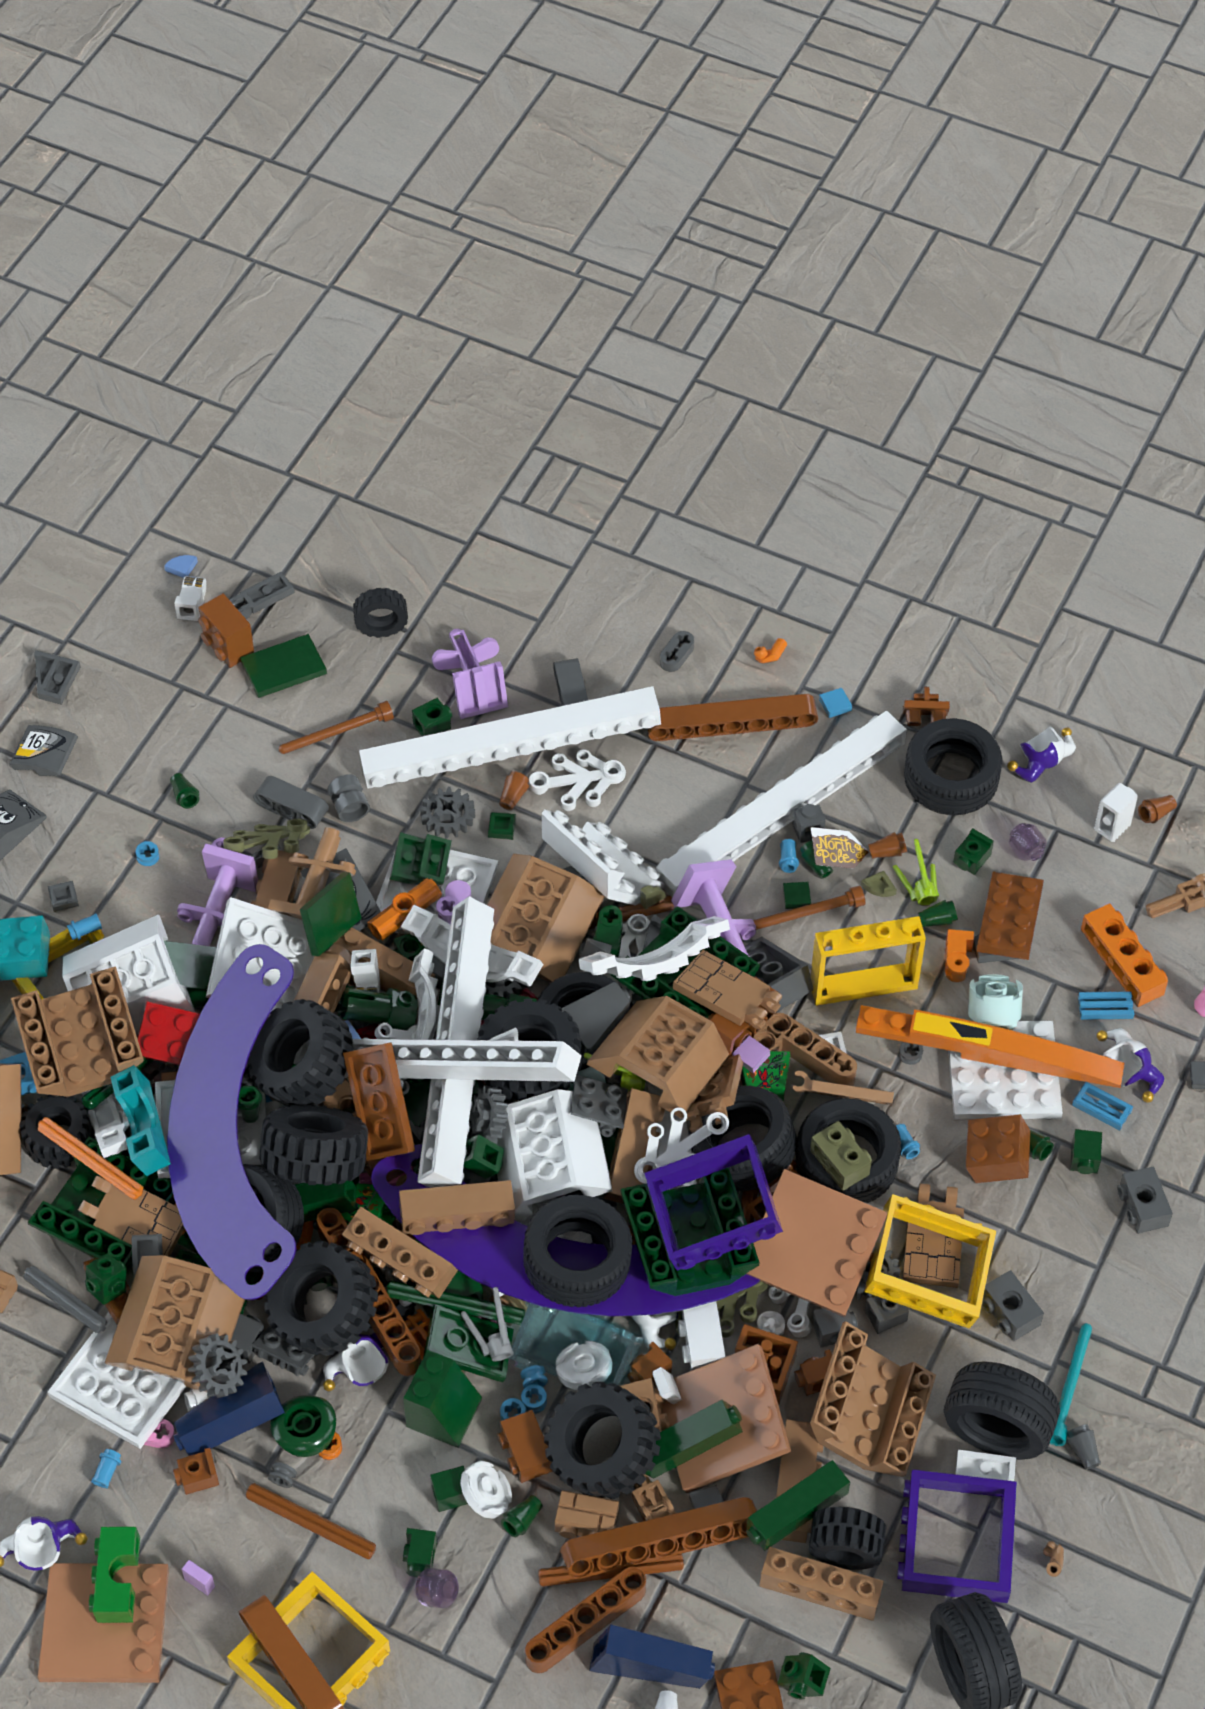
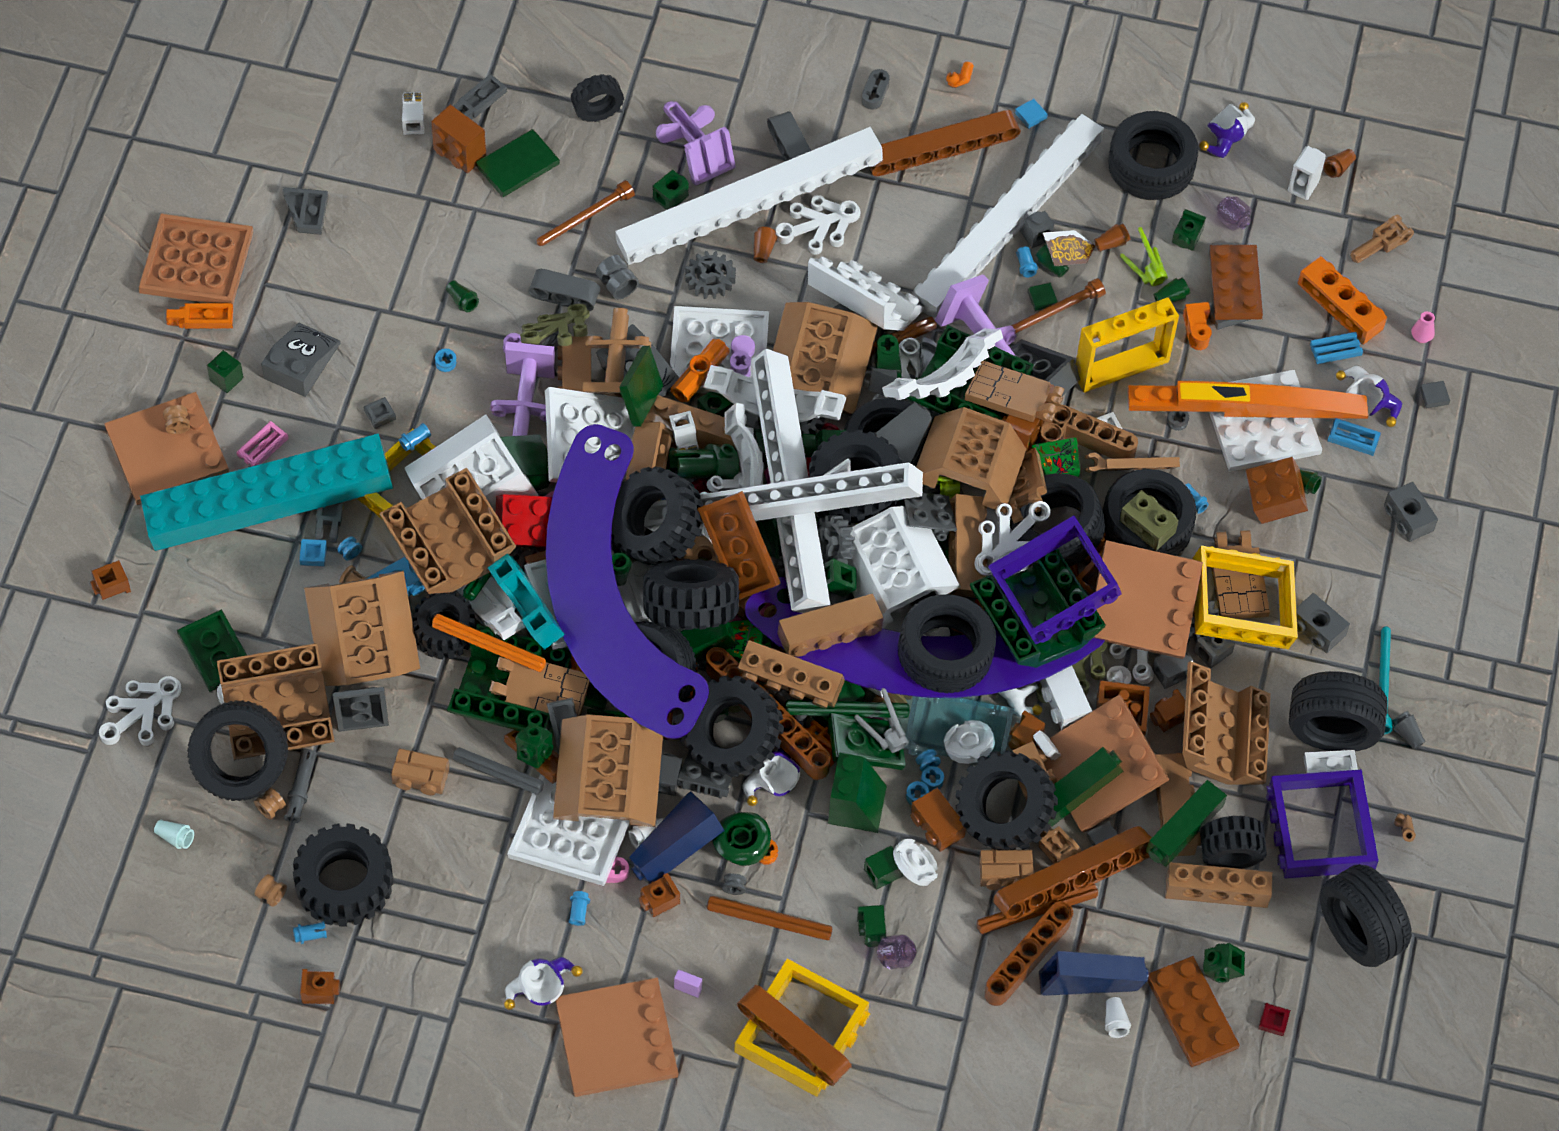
camera: 15 degrees left, 5 degrees up
(43, 750) = (319, 280): dark grey slope -> none
(115, 1549) = (622, 1015): green arch -> none
(181, 565) = (393, 83): medium blue tile -> none
(217, 1365) = (658, 800): dark grey gear -> none
(420, 859) = (699, 322): dark green slope -> none
(501, 825) = (761, 278): dark green tile -> none
(519, 1518) = (949, 880): dark green cone -> none
(651, 896) = (916, 319): olive tile -> none
(752, 1053) = (1045, 445): lavender tile -> none
(879, 885) = (1112, 274): olive tile -> none
(925, 704) = (1114, 103): dark orange hips -> none
(995, 1001) = (1243, 360): light aqua brick -> none
(1086, 1151) = (1350, 479): dark green brick -> none

